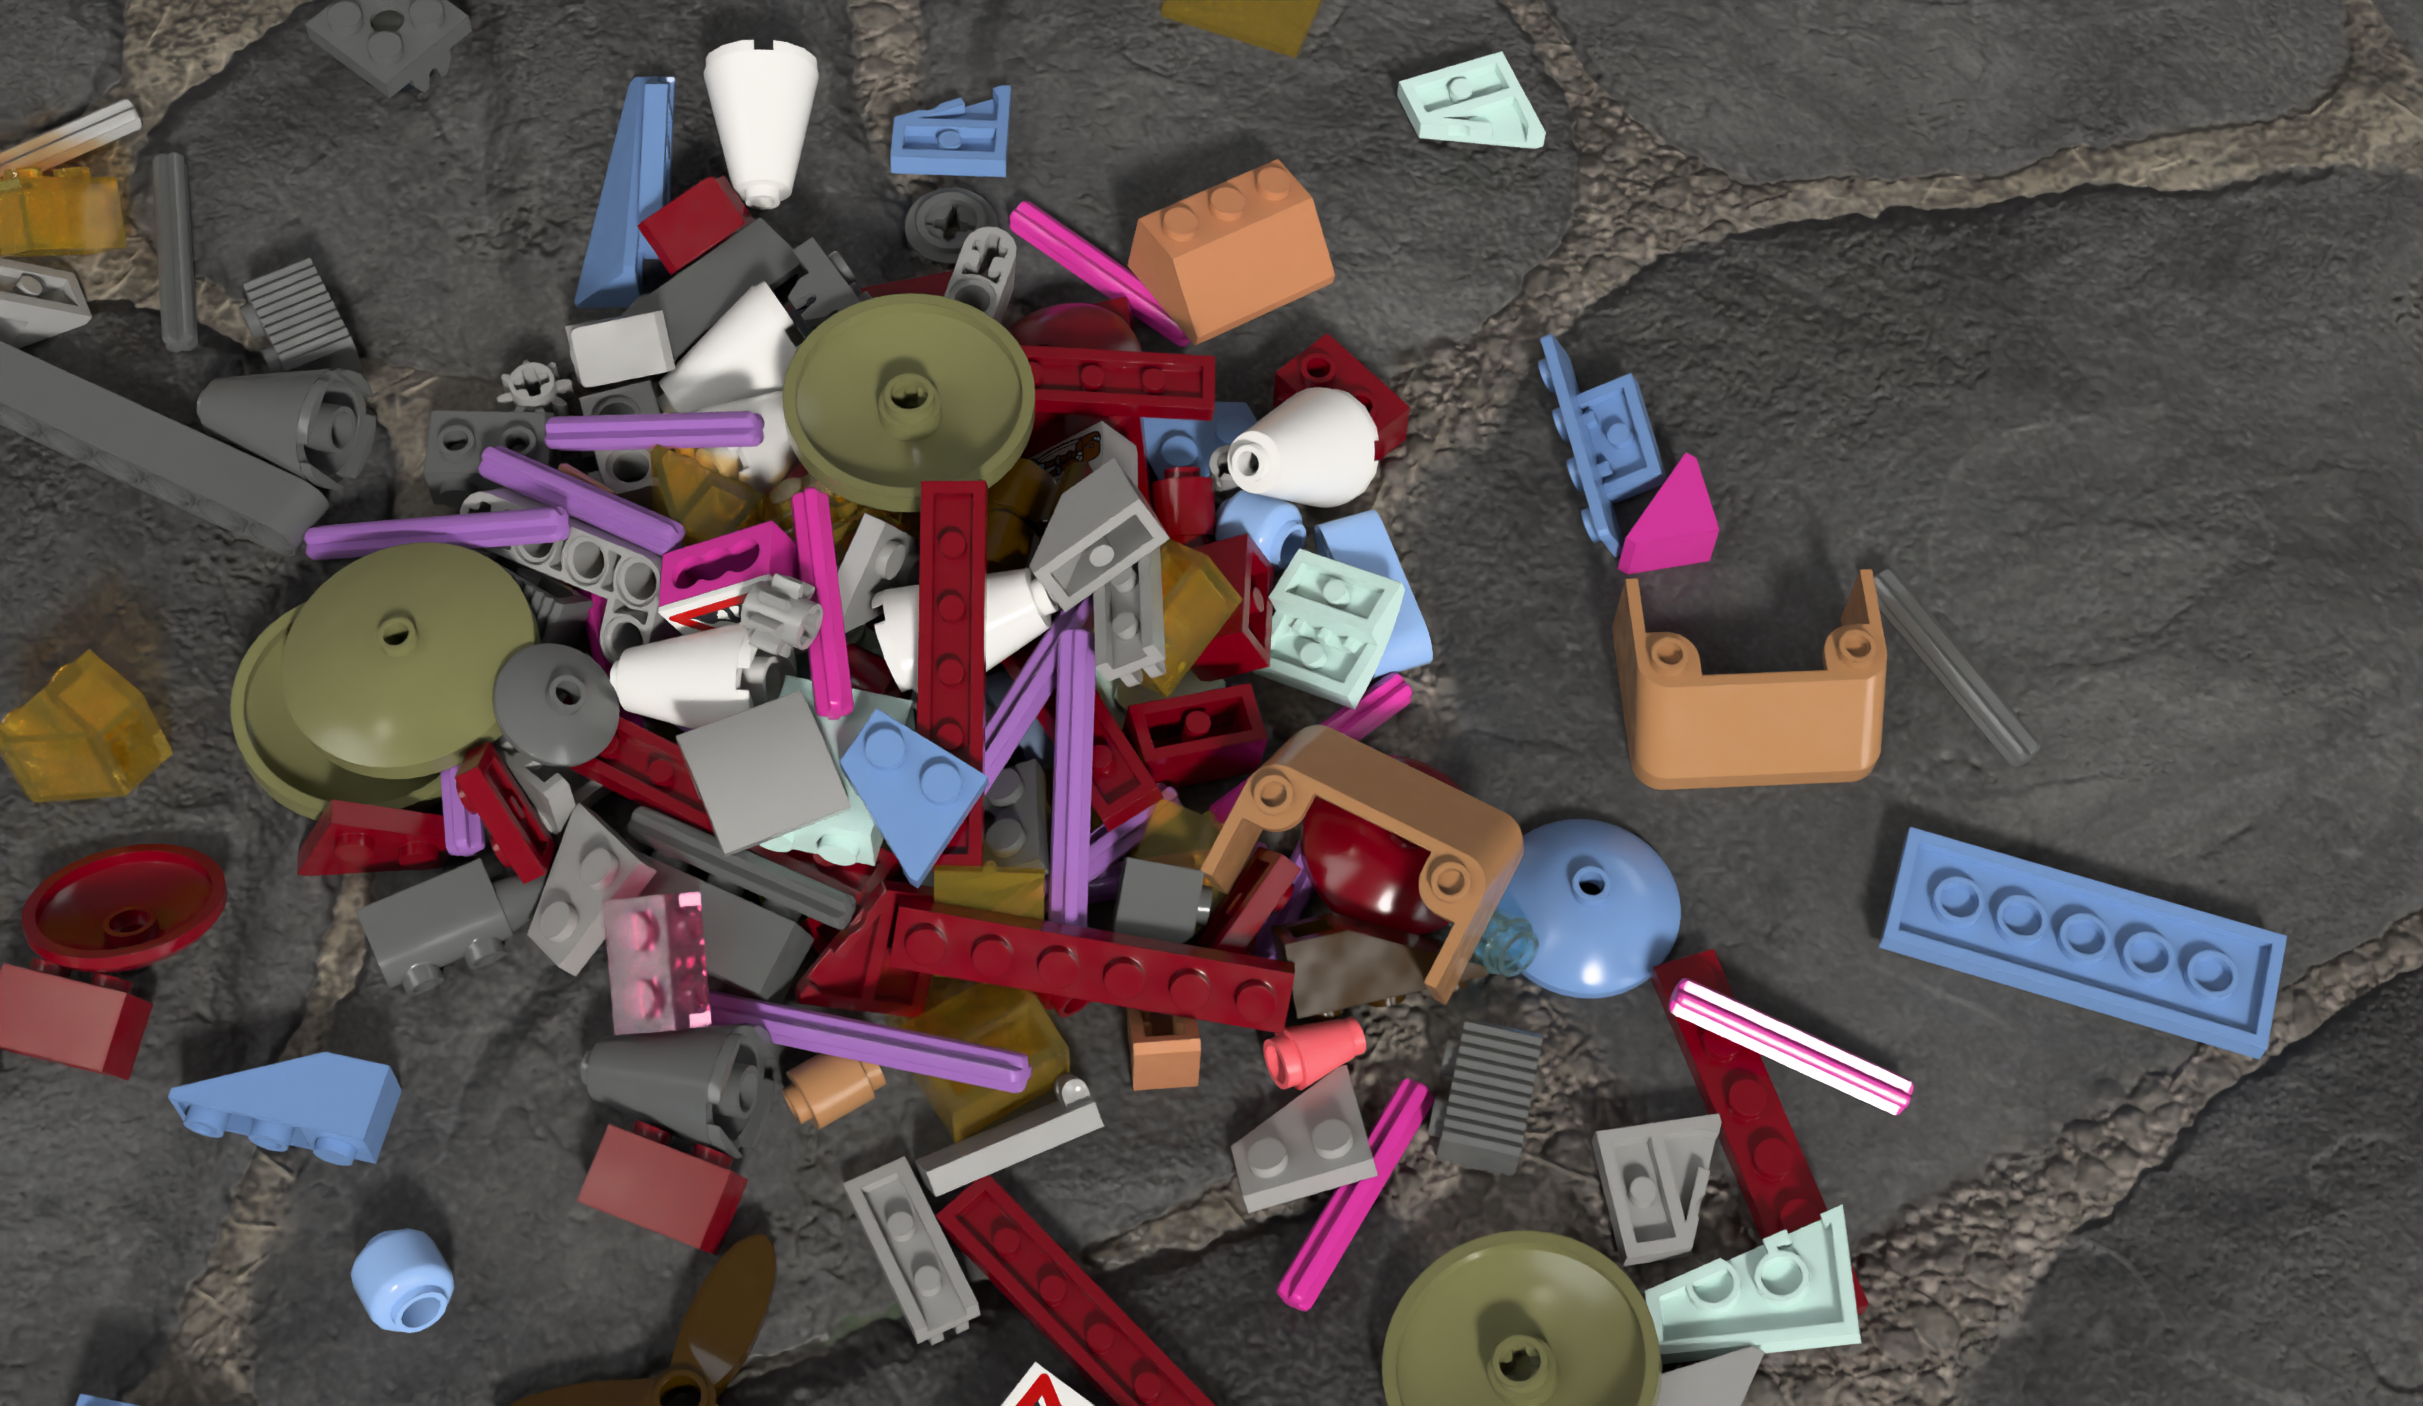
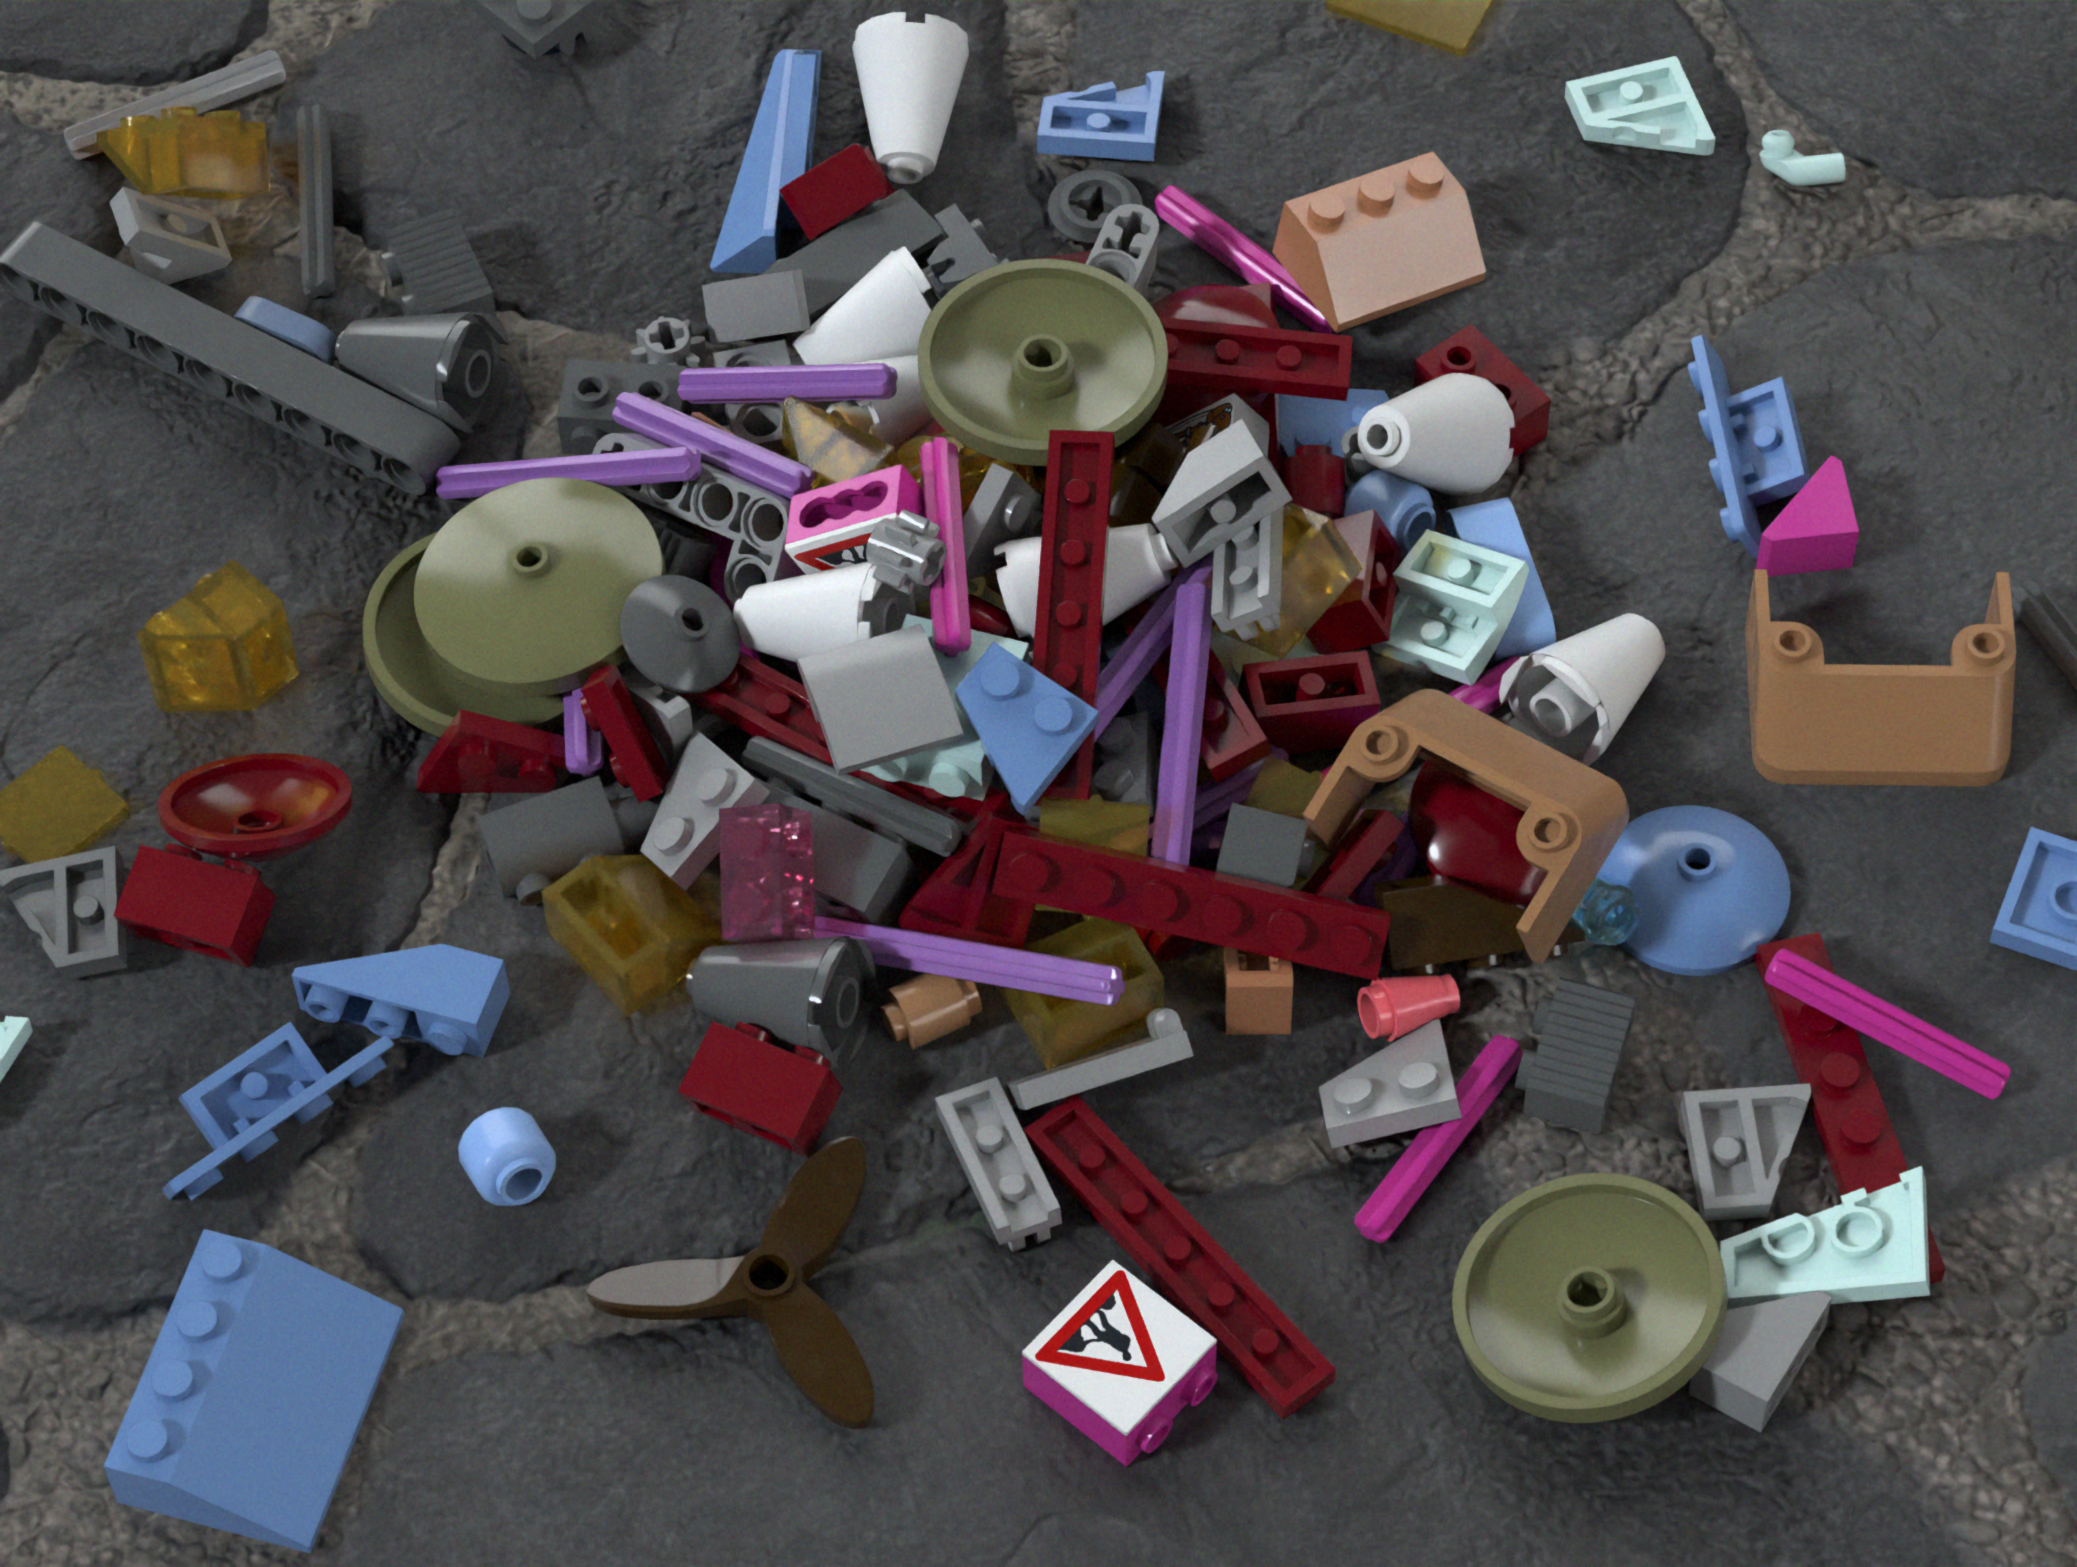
camera: 10 degrees right, 5 degrees down
(139, 1227) = (260, 1092): none -> medium blue bracket
(148, 390) = (289, 328): none -> sand blue beam
(520, 1017) = (627, 926): none -> clear yellow slope
(1464, 705) = (1583, 686): none -> white cone
(1622, 157) = (1795, 167): none -> light aqua arm

